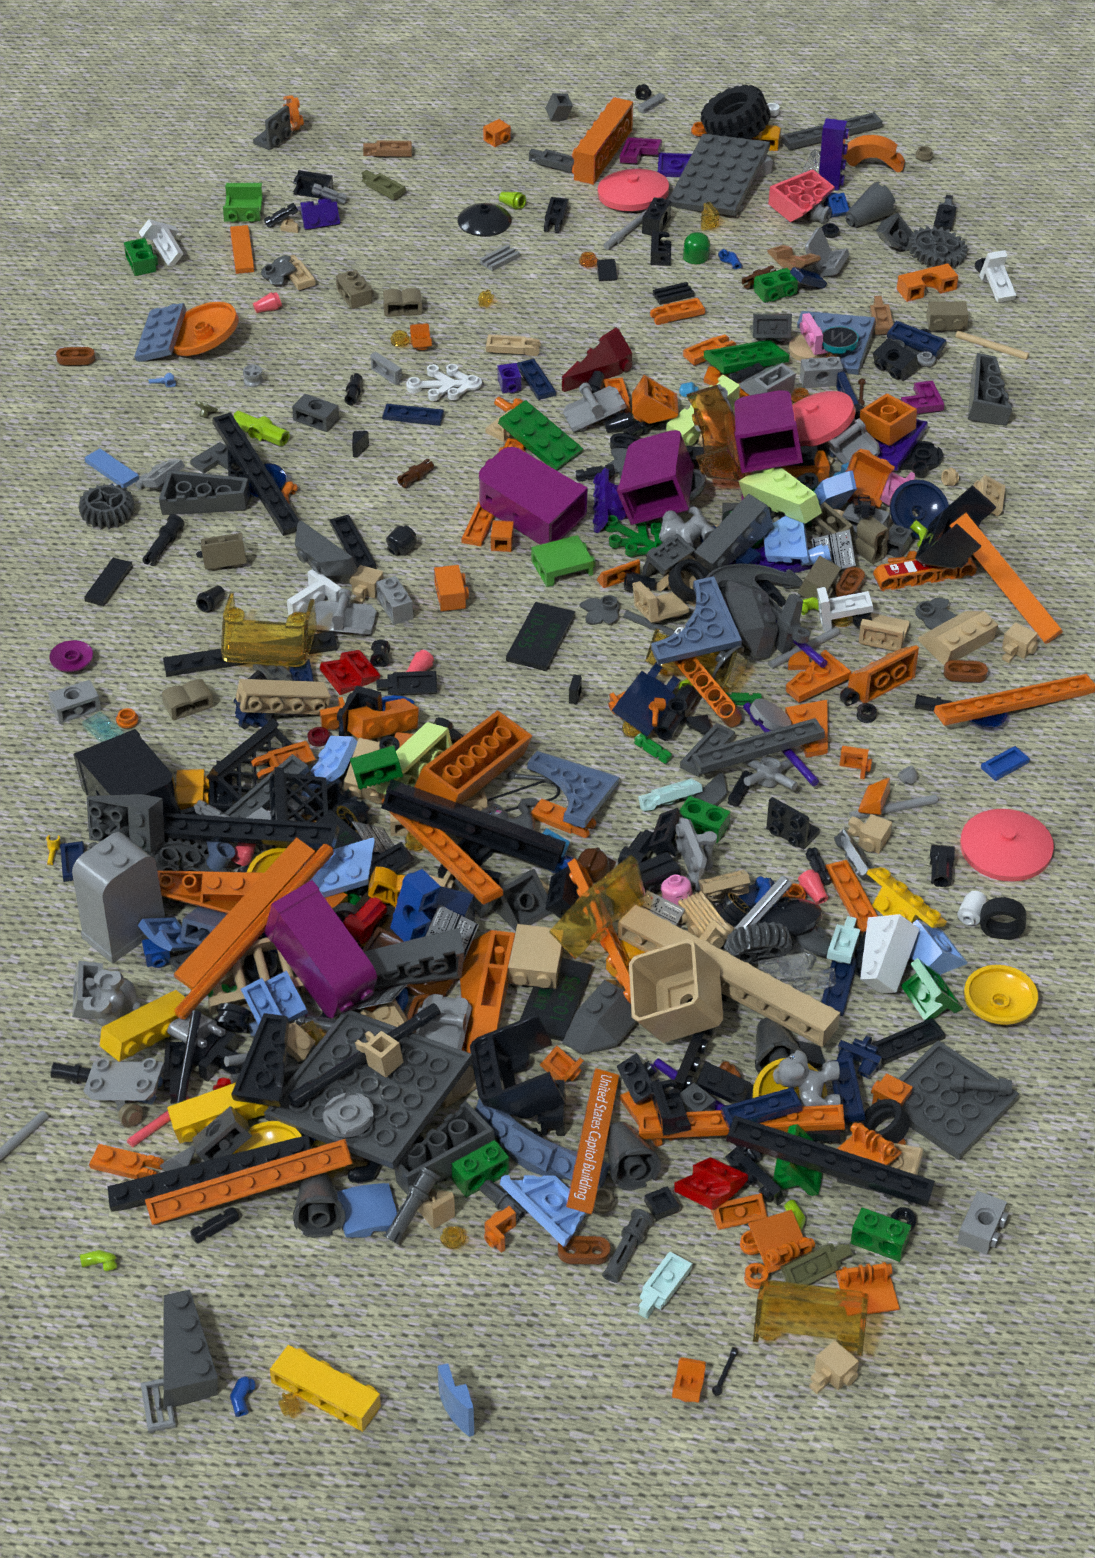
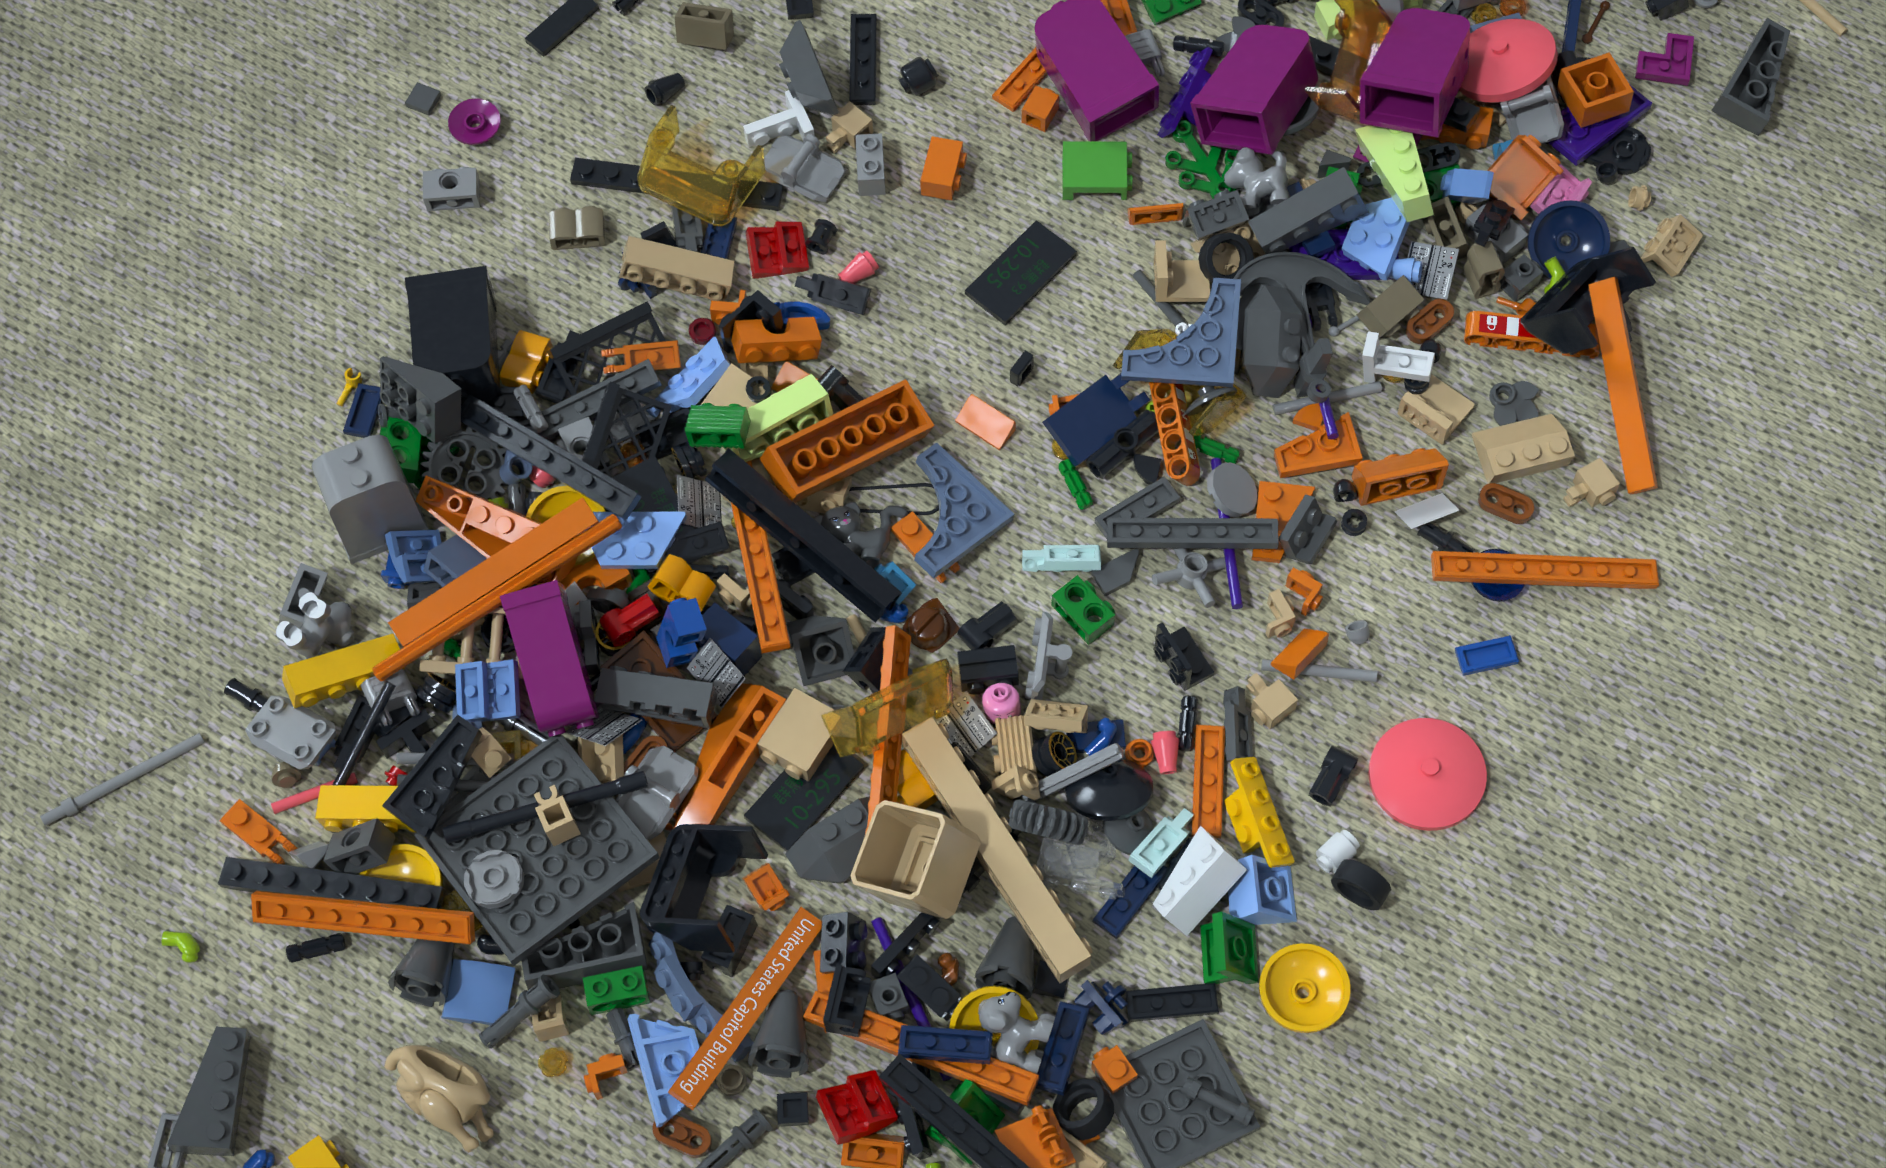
camera: 25 degrees right, 20 degrees up
(20, 655) = (423, 98): none -> dark grey tile
(101, 727) = (470, 239): clear light blue plate -> none
(127, 718) = (498, 225): orange plate -> none
(375, 1279) = (442, 1091): none -> tan piece
(512, 775) = (896, 464): dark grey hinge -> none
(566, 729) = (986, 422): none -> slope
(601, 609) = (1106, 260): dark grey plate -> none
(635, 577) = (1172, 233): black cone -> none
(657, 705) = (1098, 431): orange hand -> none
(665, 833) = (1022, 619): black hinge -> none
(739, 790) = (1137, 590): black axle -> none
(809, 604) = (1359, 335): lime arm -> none
(838, 725) = (1306, 531): none -> dark grey bracket
(848, 778) = (1283, 611): none -> tan bracket
(913, 690) = (1426, 510): none -> white sticker

